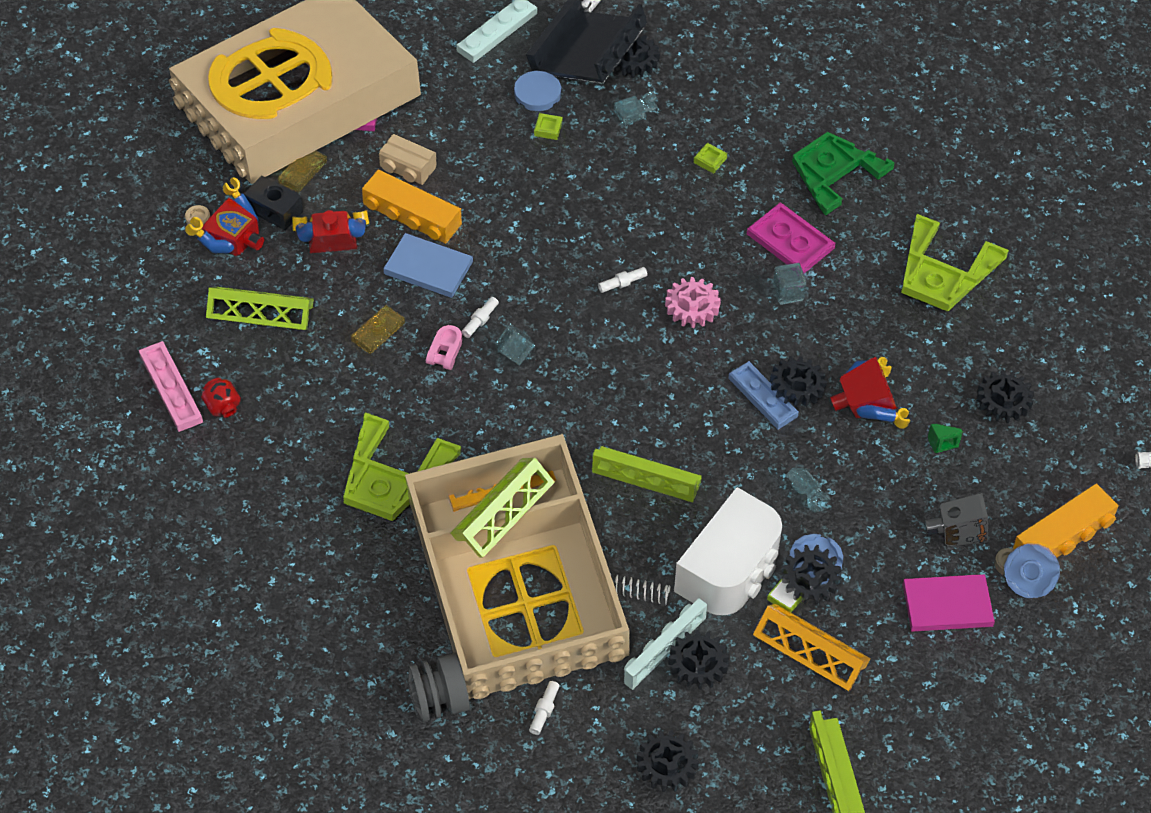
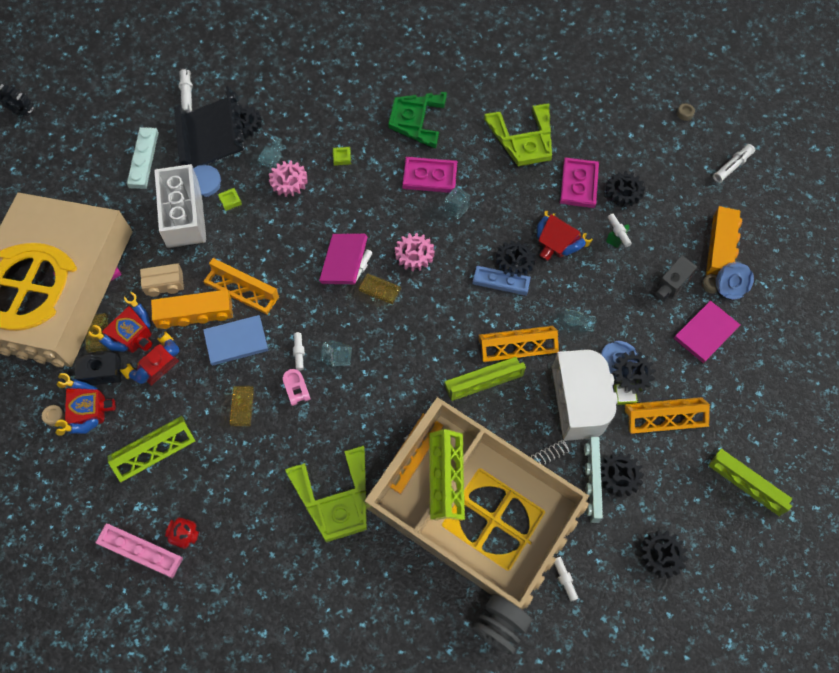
camera: 40 degrees left, 10 degrees up
(331, 185) = (128, 330): none -> torso
(484, 97) = (179, 206): none -> white brick
(486, 212) = (246, 281): none -> light orange fence
(609, 259) = (343, 259): none -> dark pink tile
(620, 314) = (380, 288): none -> clear yellow plate
(627, 143) = (288, 178): none -> bright pink gear
(717, 455) = (518, 336): none -> light orange fence
(941, 426) = (619, 230): none -> white bar
(959, 357) = (579, 182): none -> dark pink tile

